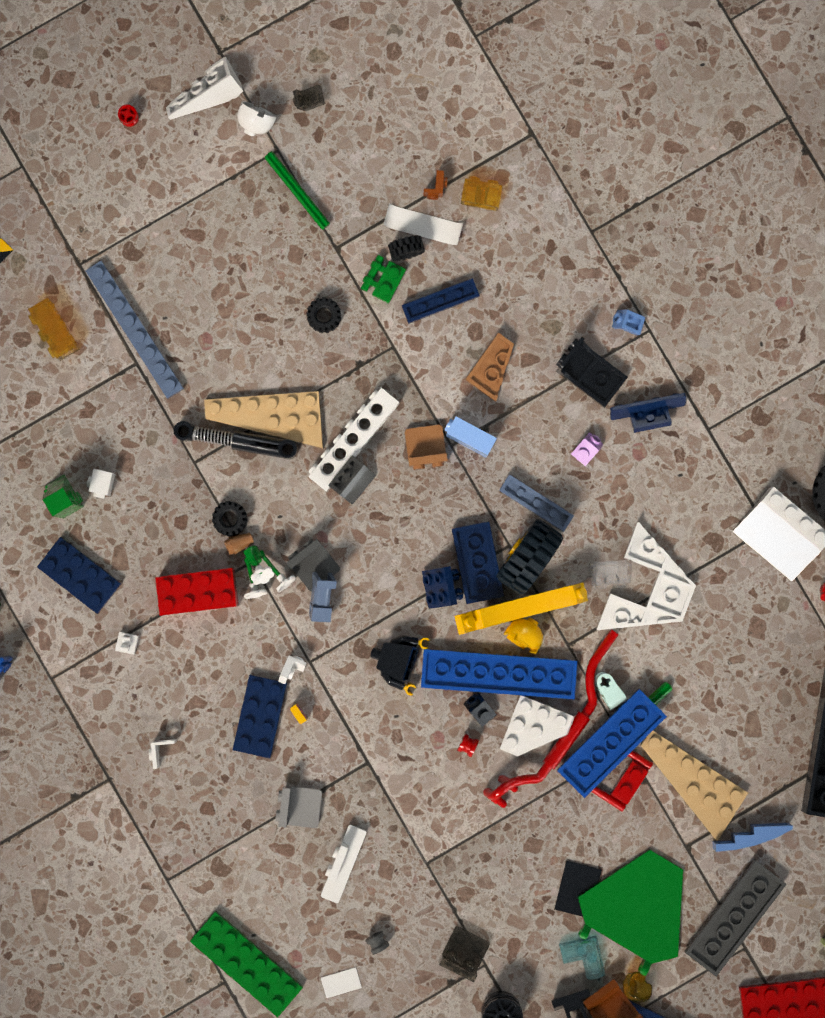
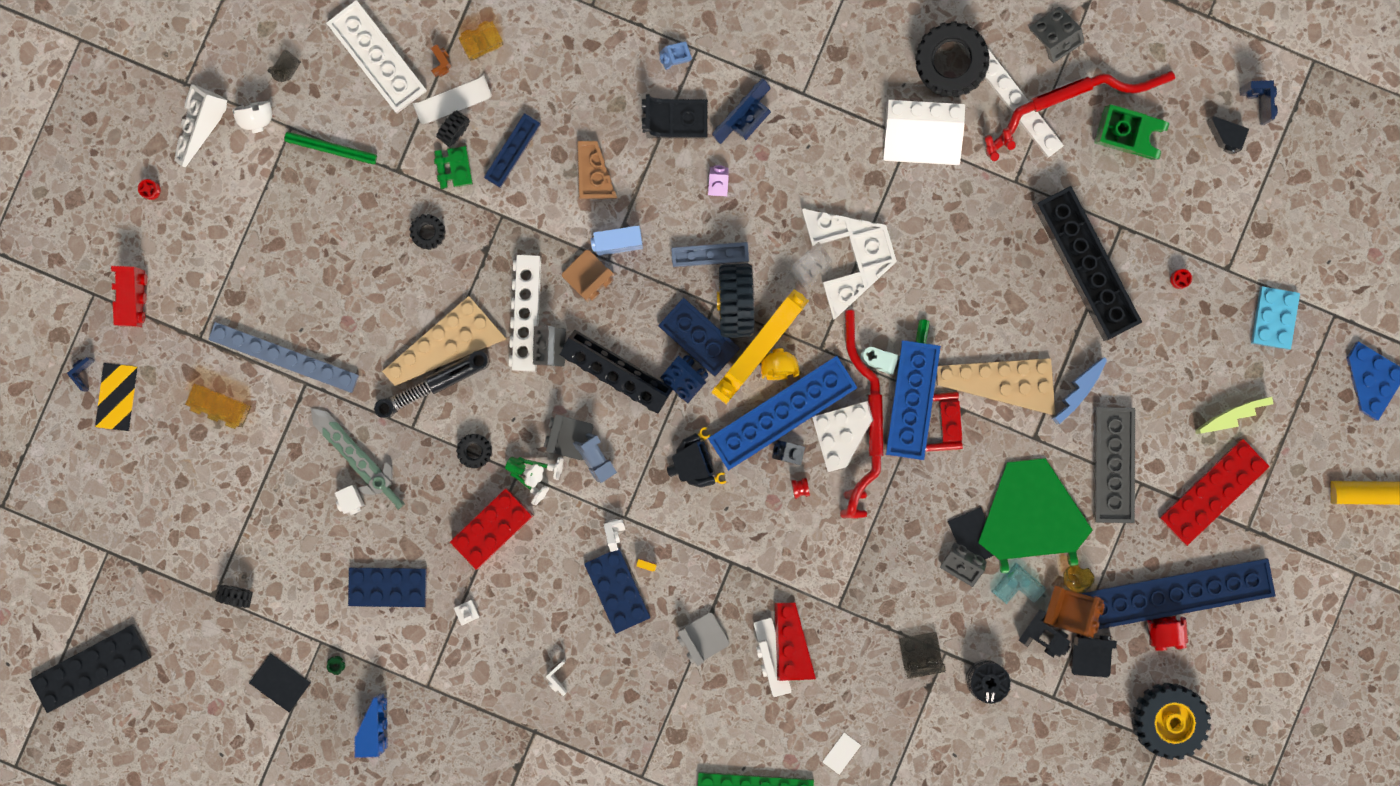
camera: 35 degrees left, 0 degrees up
(48, 189) = (129, 296): none -> red wedge
(61, 498) = (327, 535): green wedge -> none
(132, 453) = (358, 459): none -> sword
(238, 543) = (495, 466): medium nougat cone -> none
(363, 870) = (791, 646): none -> red wing
(377, 942) = (846, 699): dark grey wheel -> none
(388, 144) = (376, 56): none -> white plate
(390, 531) = (612, 362): none -> black brick
(553, 906) = (964, 564): none -> dark grey bracket

